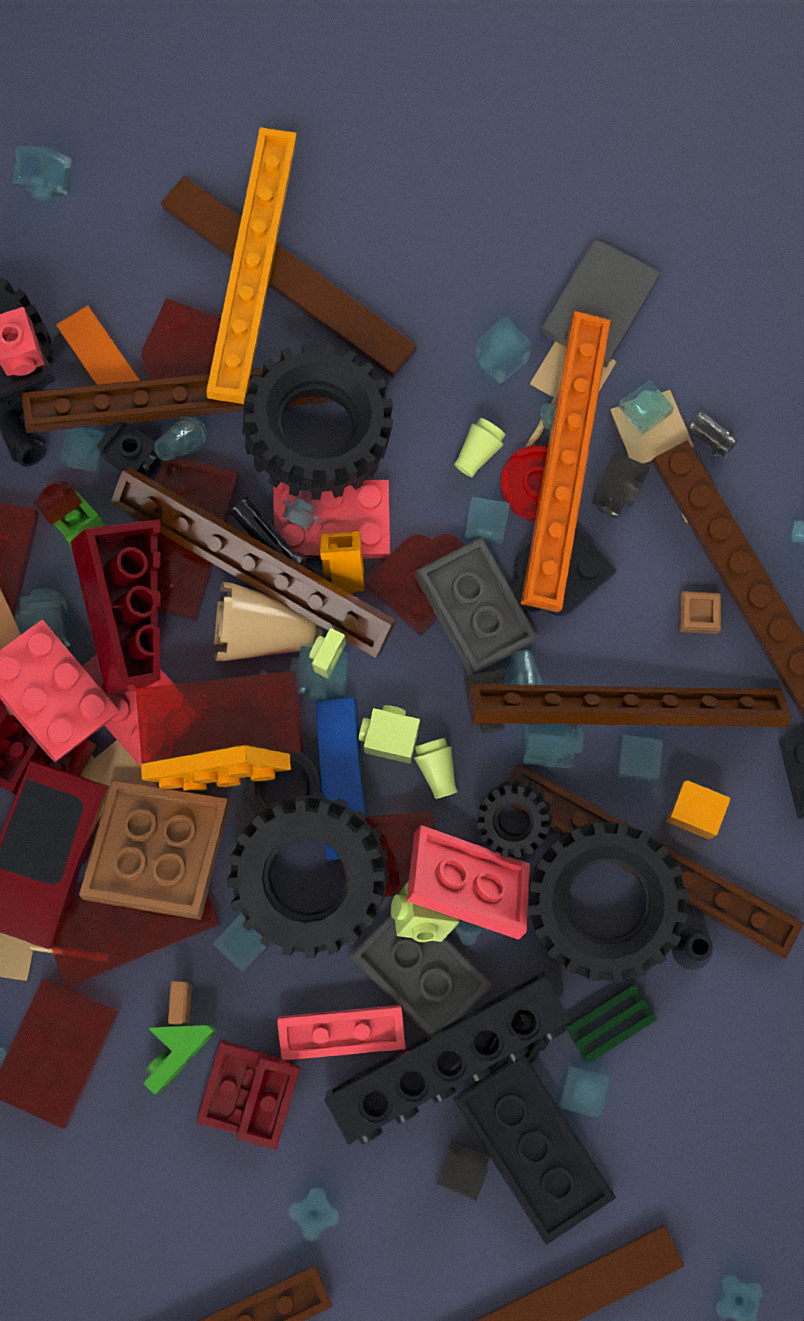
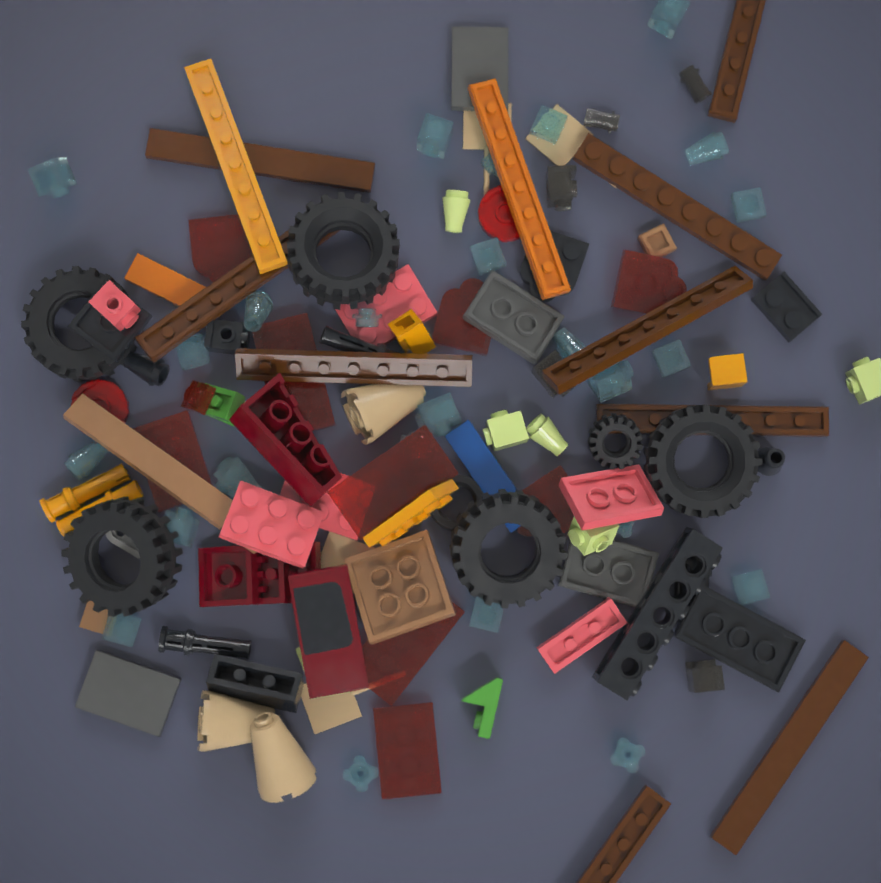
camera: 35 degrees left, 5 degrees up
(180, 1002) = (470, 674): medium nougat tile -> none
(248, 1094) = (545, 706): dark red slope -> none
(327, 652) = (438, 400): yellowish green plate -> none
(640, 1005) = (755, 514): dark green tile -> none
(659, 650) = (646, 282): none -> clear red plate

